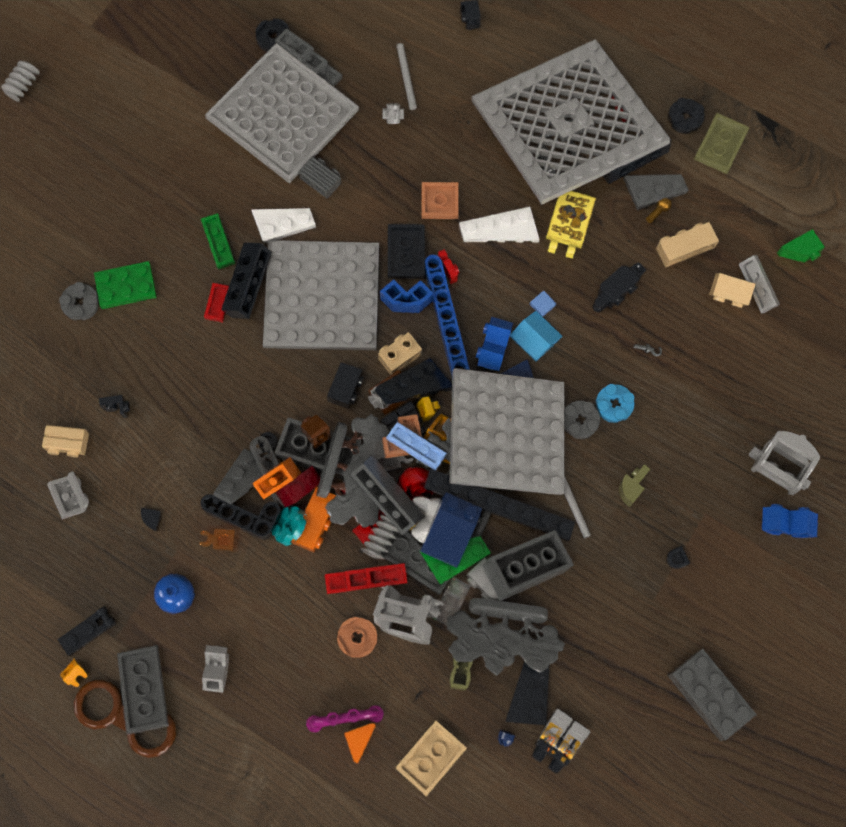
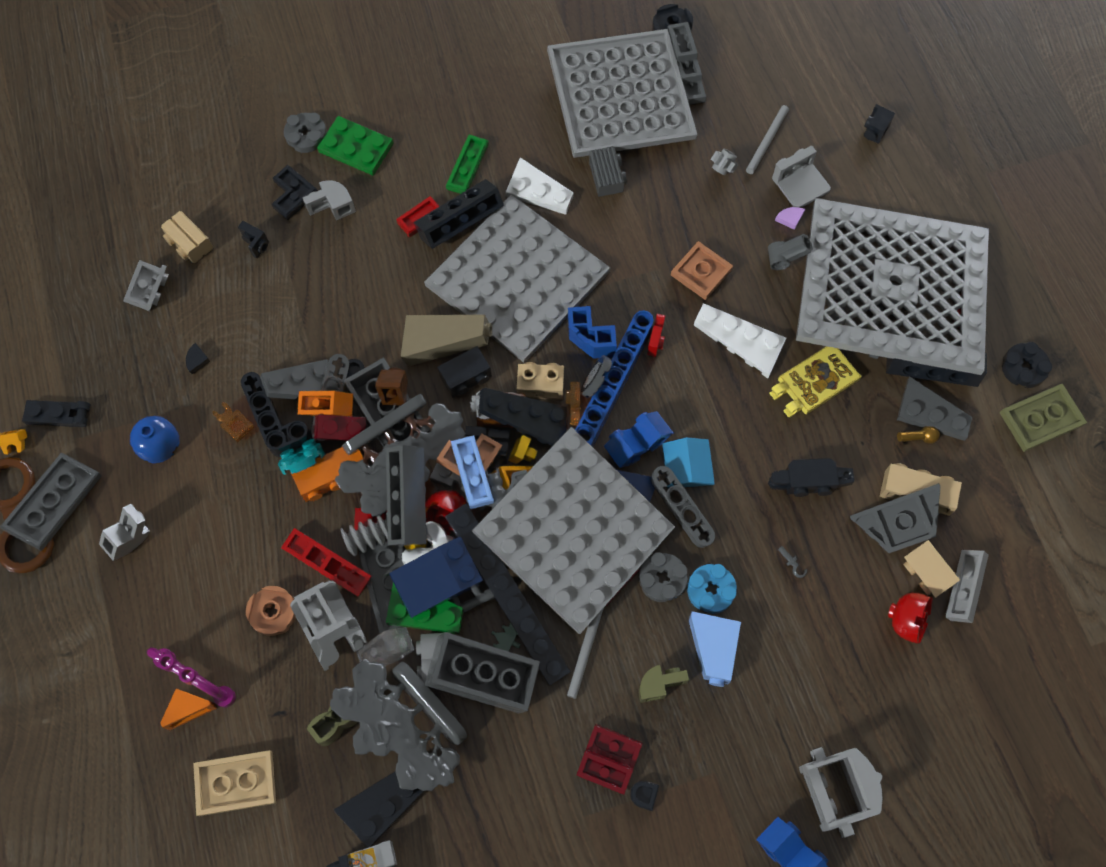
camera: 45 degrees right, 5 degrees down
(114, 348) = (295, 189): none -> black tile
(143, 333) = (333, 196): none -> light grey brick
(310, 372) = (442, 335): none -> dark tan slope
(406, 251) = (628, 293): black plate -> none
(433, 350) = (573, 399): none -> clear orange plate
(434, 324) = (594, 378): none -> dark grey tile
(452, 90) = (800, 178): none -> light grey bracket
(466, 121) = (790, 217): none -> lavender tile
(483, 150) = (783, 253): none -> dark grey piece
(505, 738) = (320, 826): dark blue hinge -> none
(518, 534) = (506, 638): none -> sand green piece
(542, 303) = (721, 438): medium blue tile -> none
(556, 368) = (679, 508): none -> dark grey beam
(640, 554) = (609, 759): none -> dark red slope
(647, 437) = (715, 646): none -> light blue slope
(693, 271) = (902, 520): none -> dark grey wing
(742, 328) = (910, 616): none -> red cylinder
(802, 248) = (1047, 585): green slope -> none

